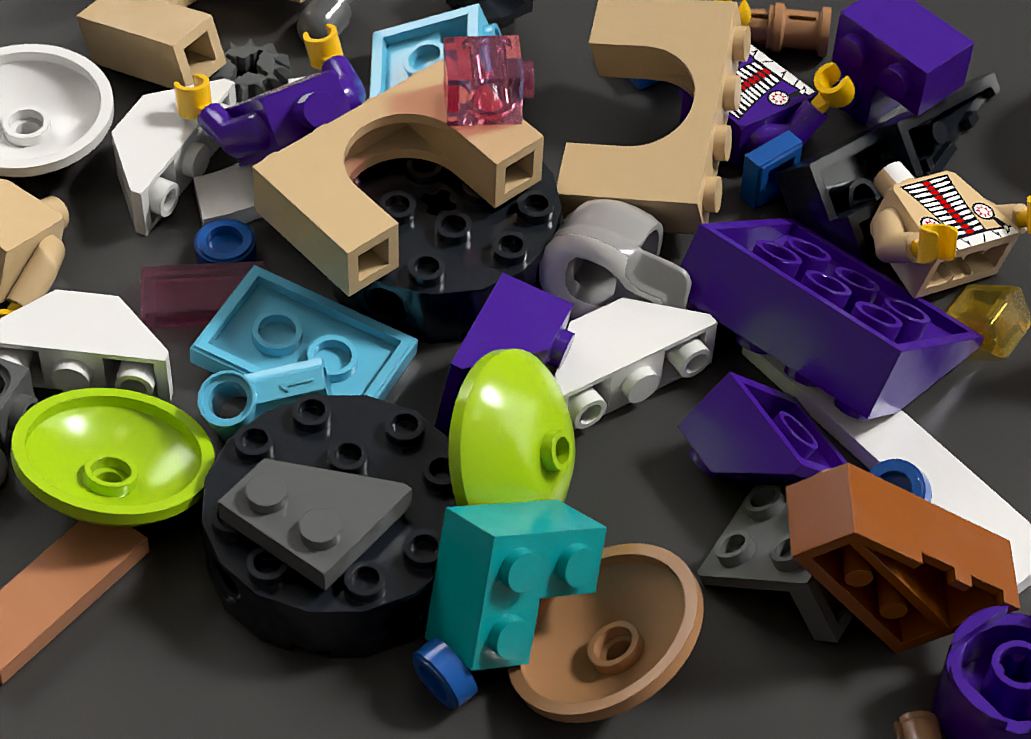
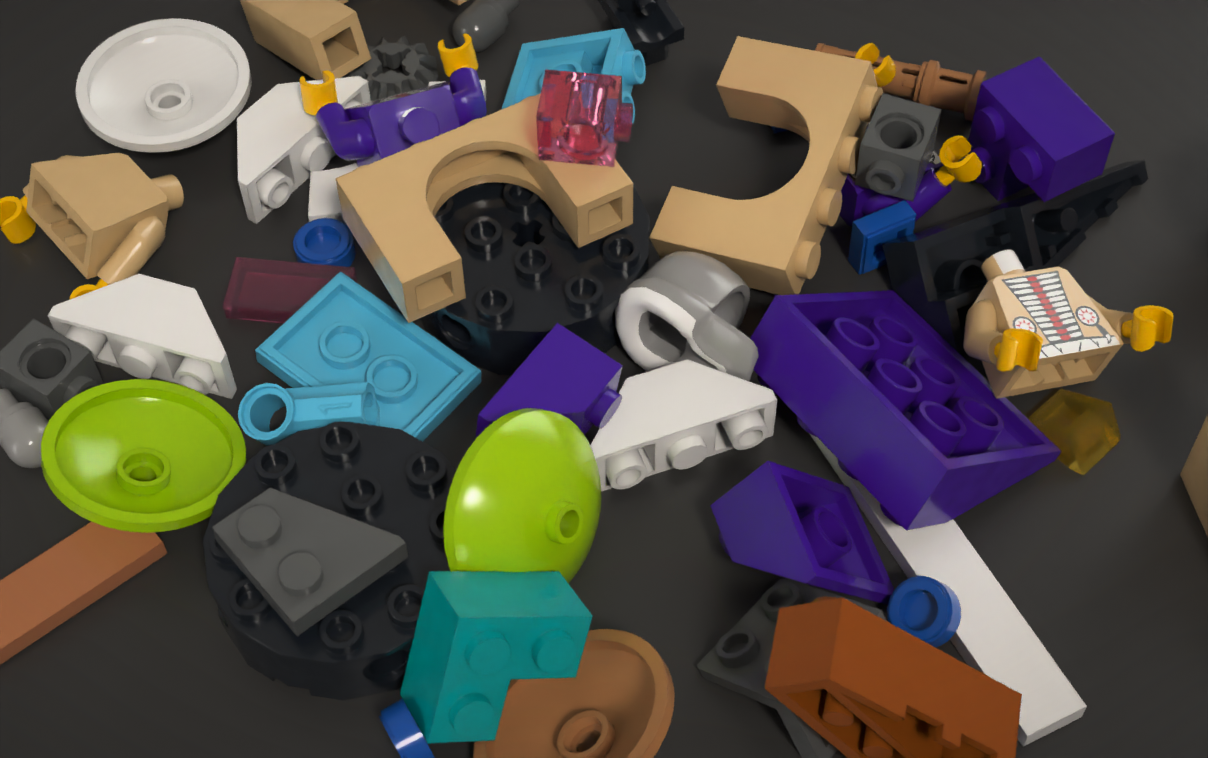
camera: 15 degrees right, 5 degrees up
(773, 80) = (897, 147): none -> dark grey brick

